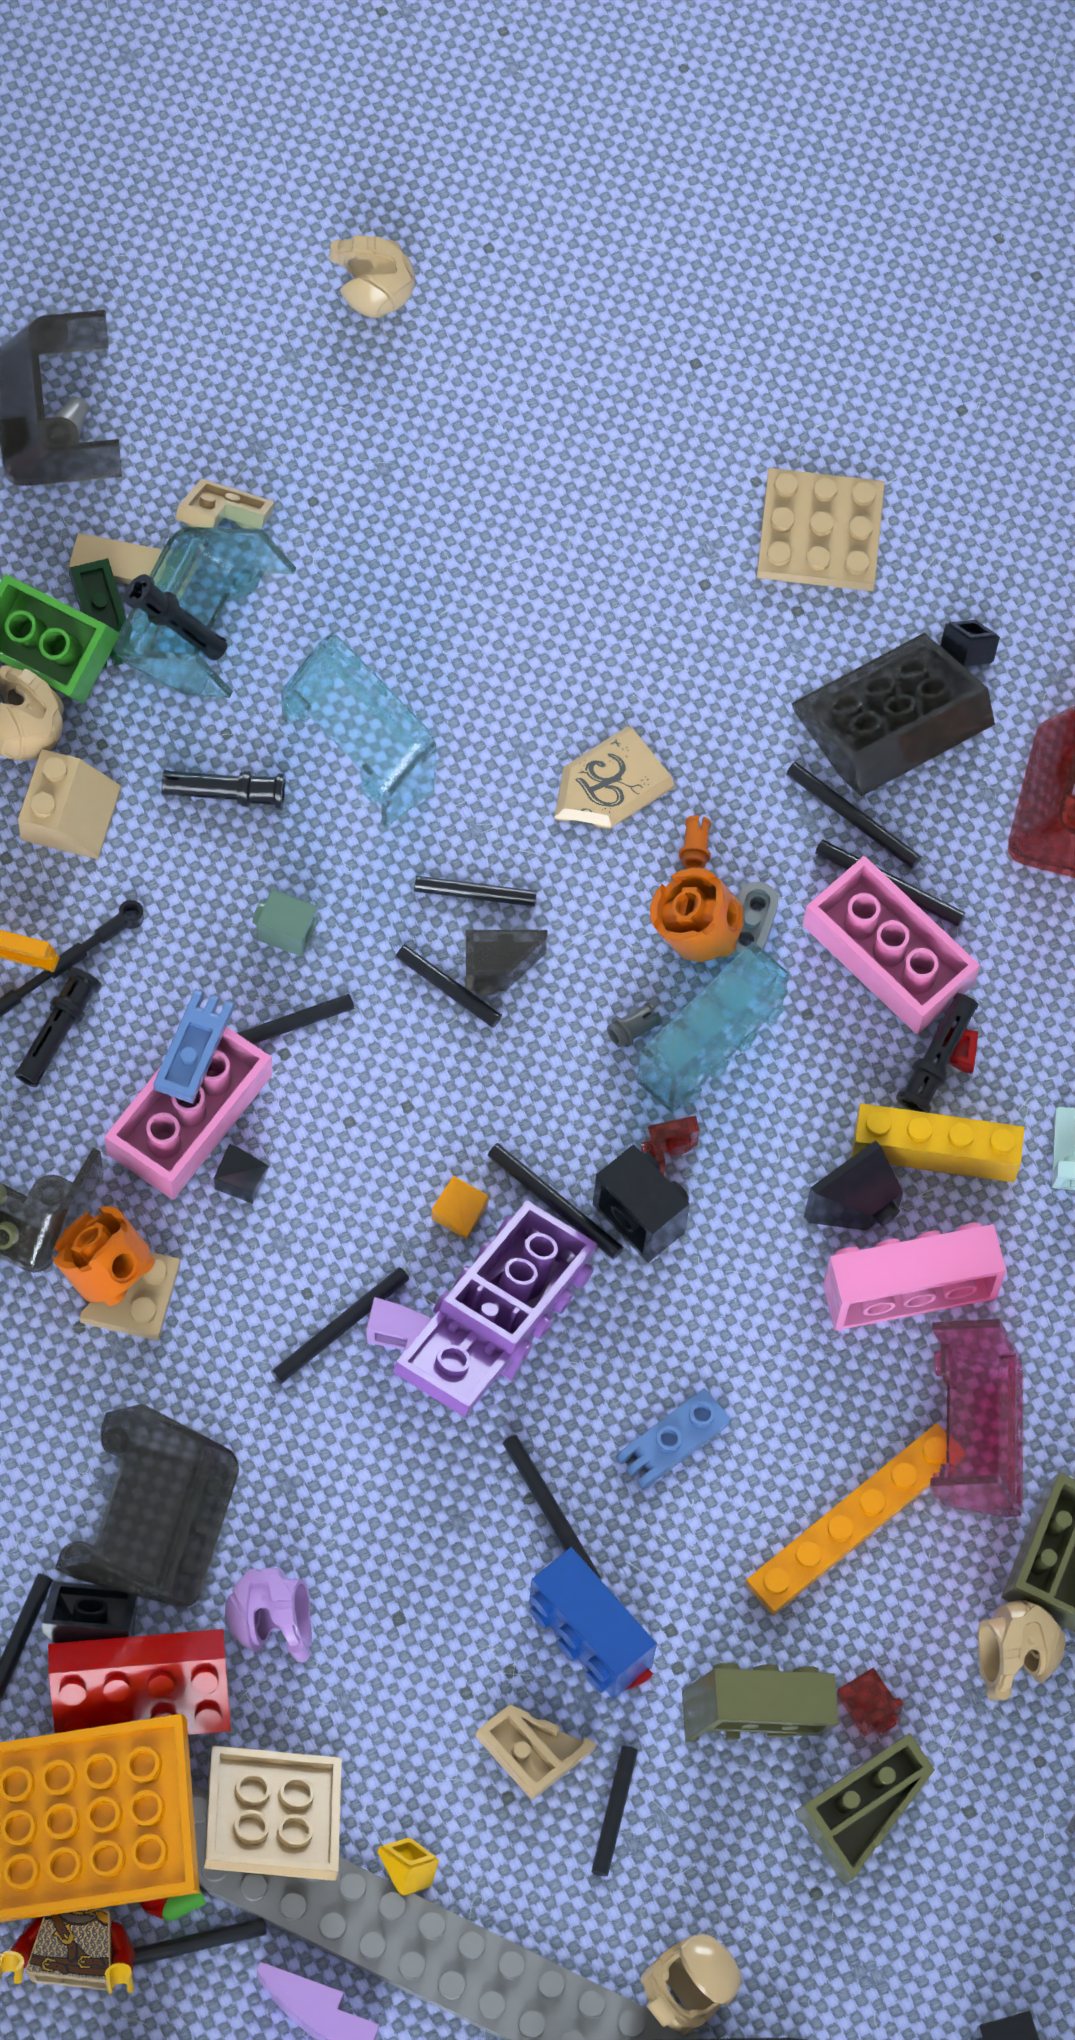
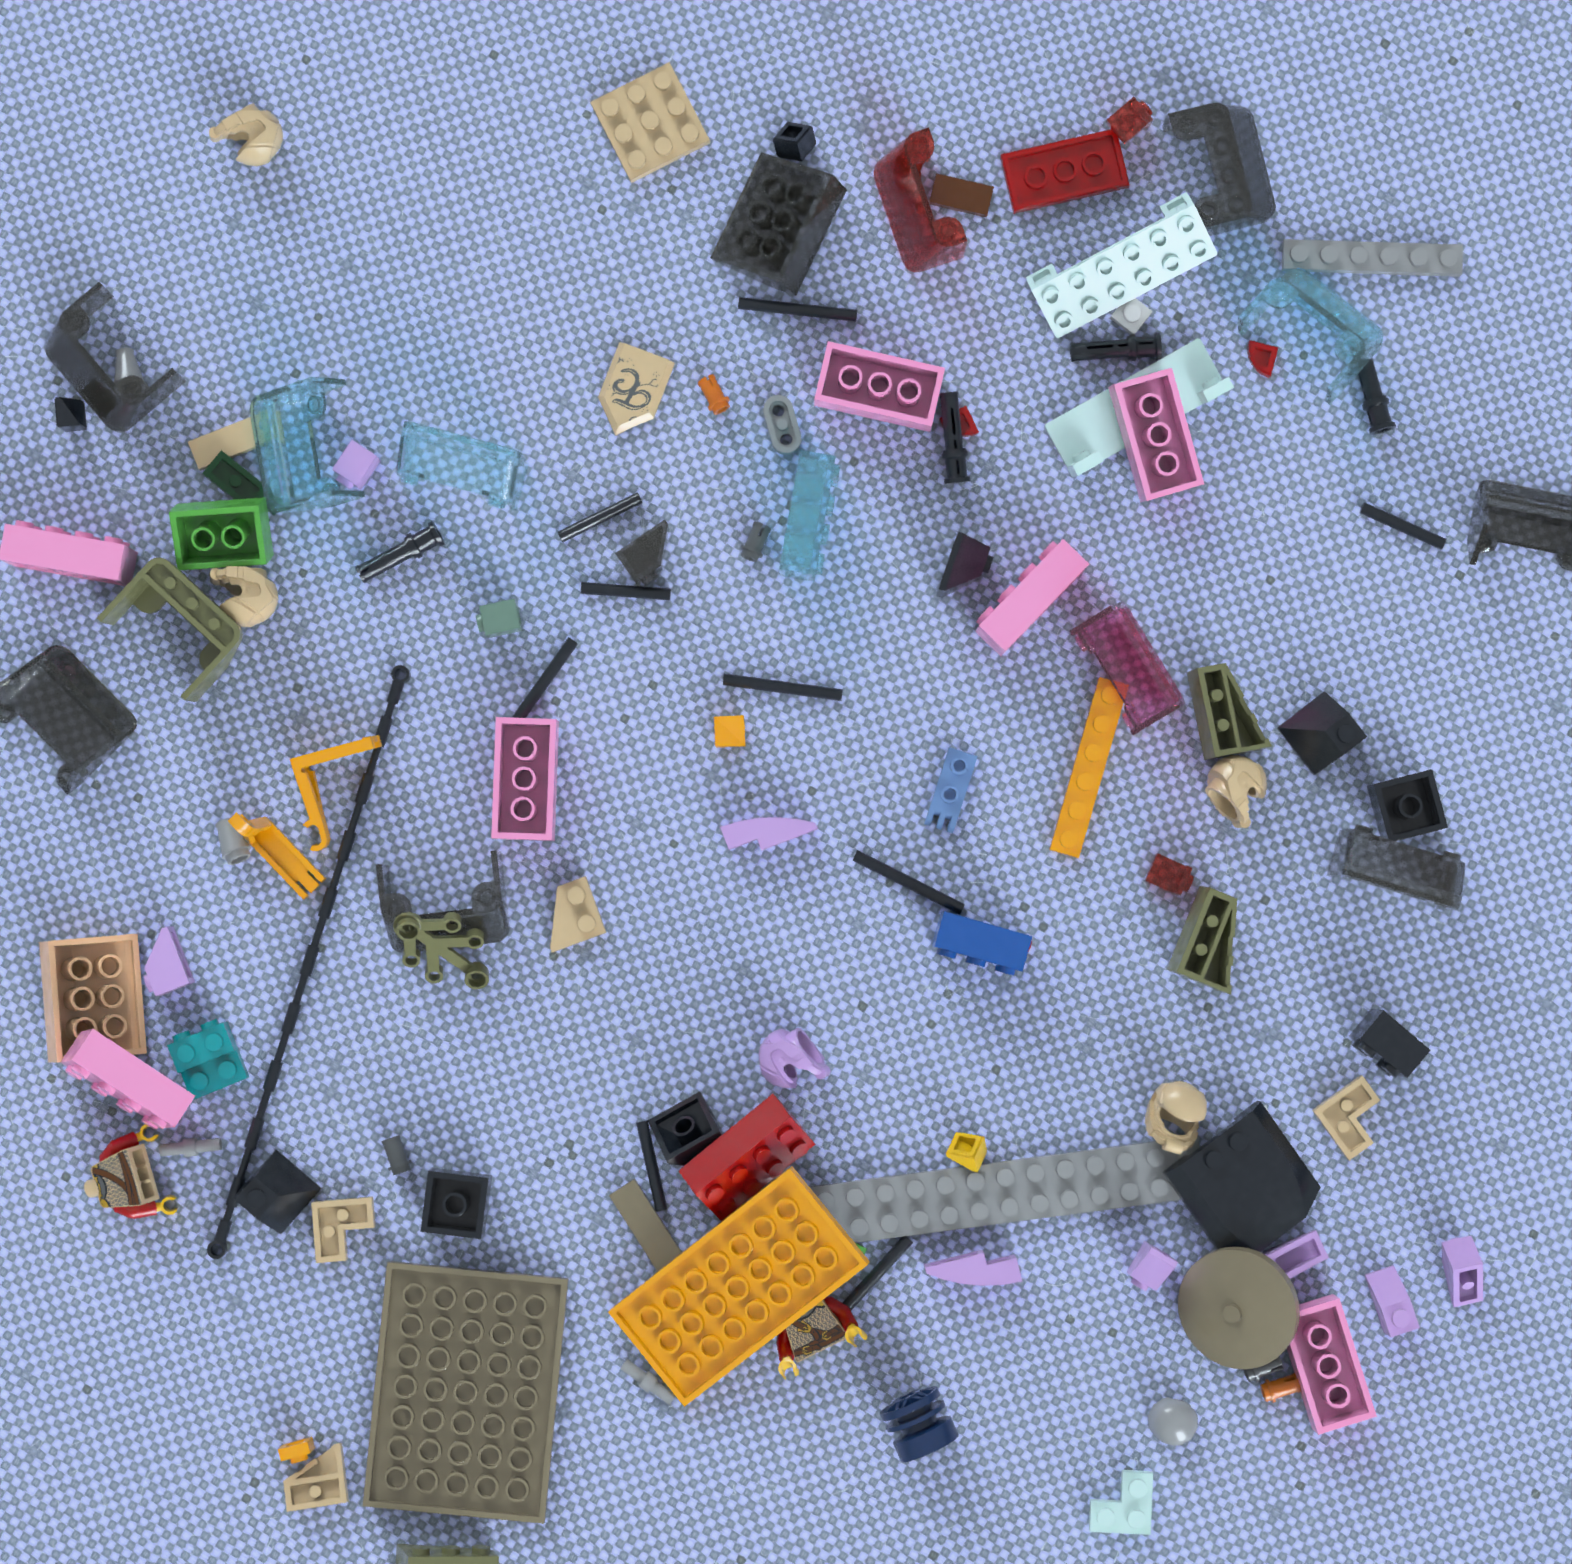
camera: 25 degrees left, 20 degrees up
(65, 1011) = (406, 764): black pin -> none
(68, 805) = (313, 631): tan slope -> none
(102, 1256) = (541, 910): orange brick -> none
(160, 1511) = (682, 1041): clear smoke windscreen -> none
(165, 610) = (286, 467): black pin -> none
(193, 1047) = (506, 747): medium blue hinge -> none
(212, 502) = (260, 362): tan plate -> none
(240, 1174) = (584, 798): black slope -> none
(244, 666) = (355, 466): none -> lavender brick
(273, 1813) = (873, 1176): tan plate -> none
(338, 1326) = (707, 851): black bar -> none
(498, 1308) = (801, 790): medium lavender wedge -> none
(532, 1749) = (993, 1034): tan wing -> none
(614, 1811) = (1063, 1037): black bar -> none
(641, 1202) = (839, 659): black brick -> none
(671, 1137) = (828, 600): clear red bracket -> none
(697, 915) = (750, 448): orange brick -> none
(760, 1701) = (1108, 921): olive wedge -> none
(919, 897) = (850, 340): black bar -> none
(941, 1142) = (989, 497): yellow brick -> none

